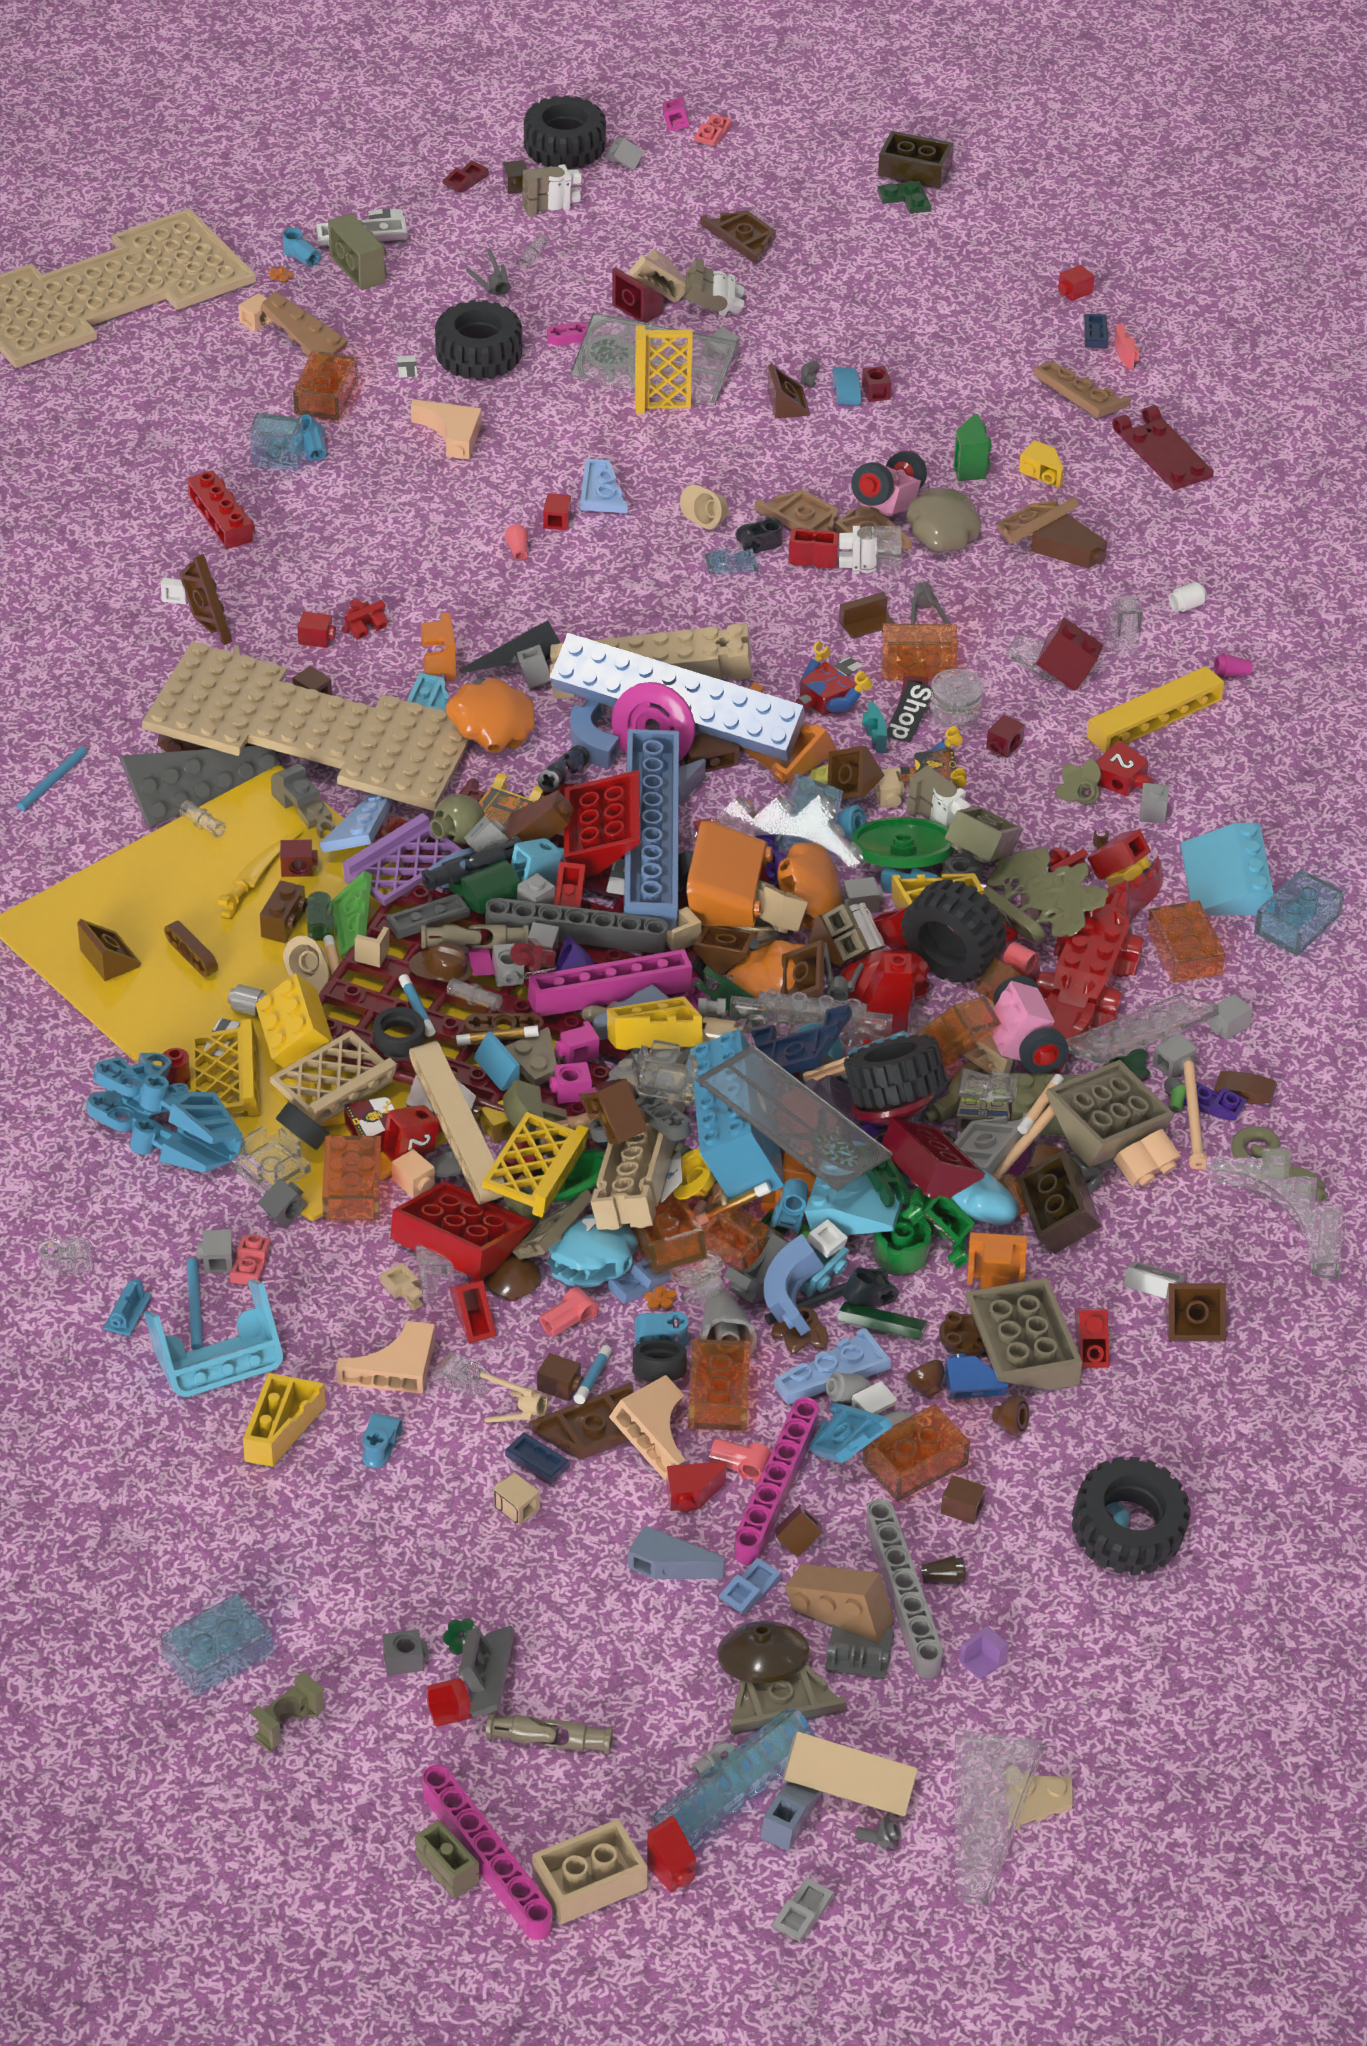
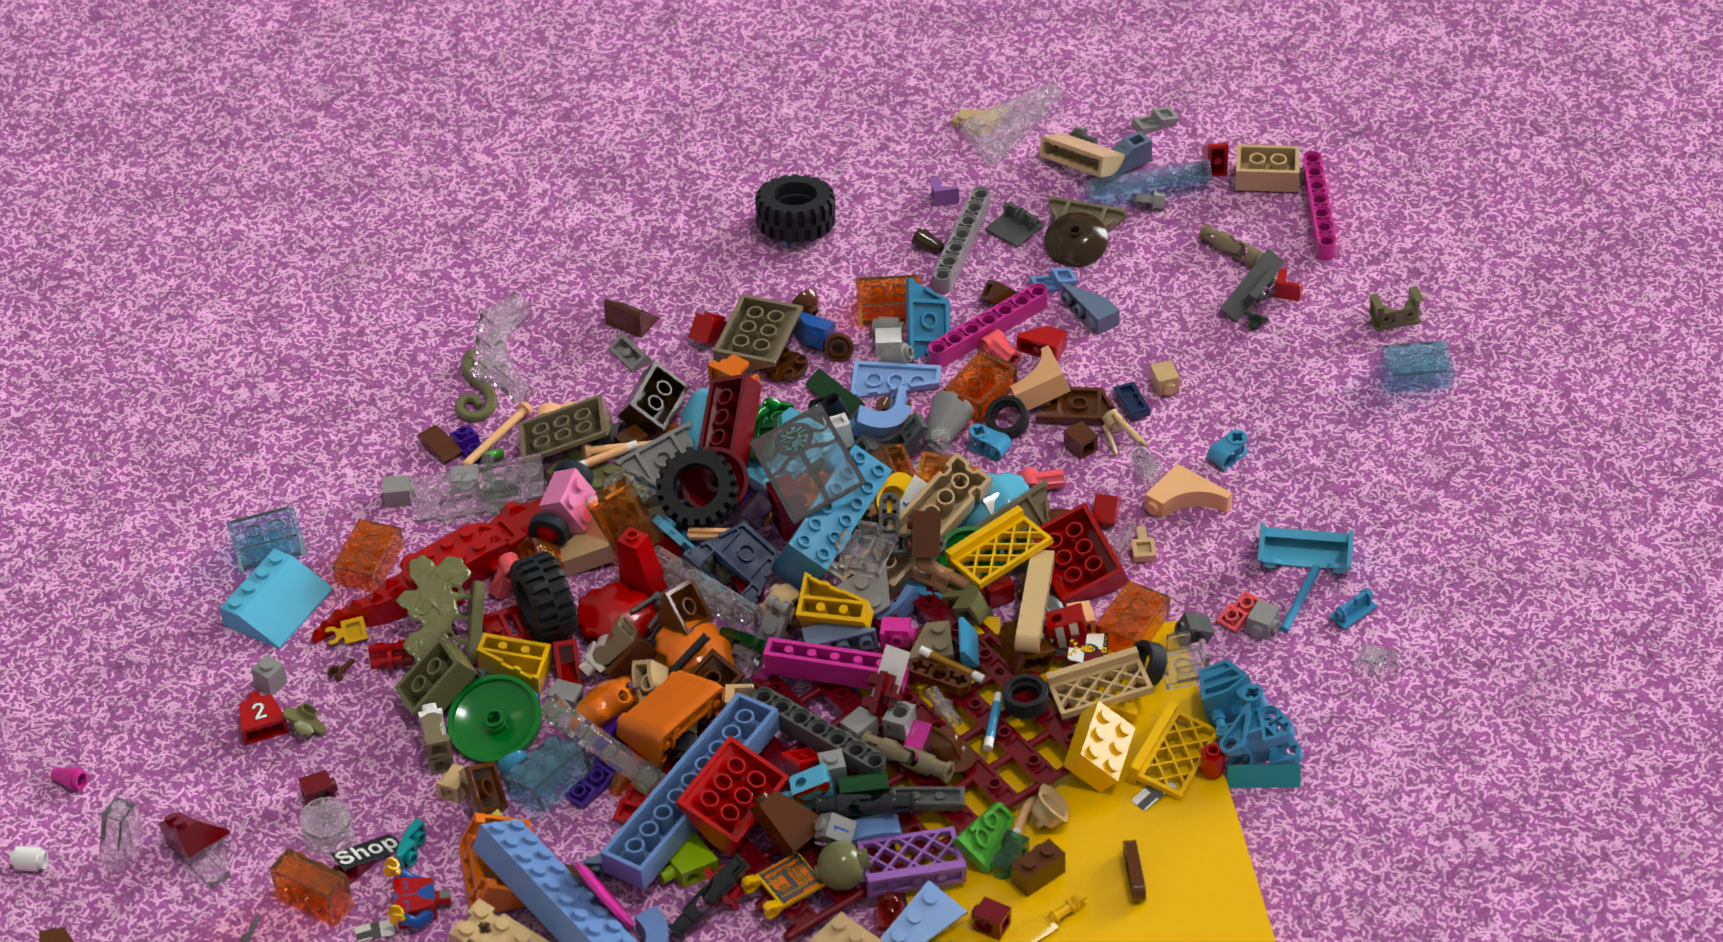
camera: 145 degrees left, 0 degrees up
(105, 950) = (1204, 898): reddish brown slope -> none
(244, 999) = (1116, 801): light grey brick -> none
(281, 1416) = (1292, 482): yellow wedge -> none
(372, 950) = (996, 775): tan panel -> none
(404, 1652) = (1299, 321): dark grey brick -> none
(447, 1859) = (1347, 203): olive brick -> none
(570, 1081) = (925, 604): dark pink brick -> none
(572, 956) = (848, 697): dark purple hat -> none
(592, 1375) = (1056, 433): bar -> none
(842, 1598) = (1009, 239): medium nougat wedge -> none
(941, 759) = (405, 779): torso -> none
(963, 1499) = (881, 266): reddish brown panel -> none
(1119, 853) = (339, 642): red slope -> none
(1156, 709) = (175, 760): yellow brick -> none

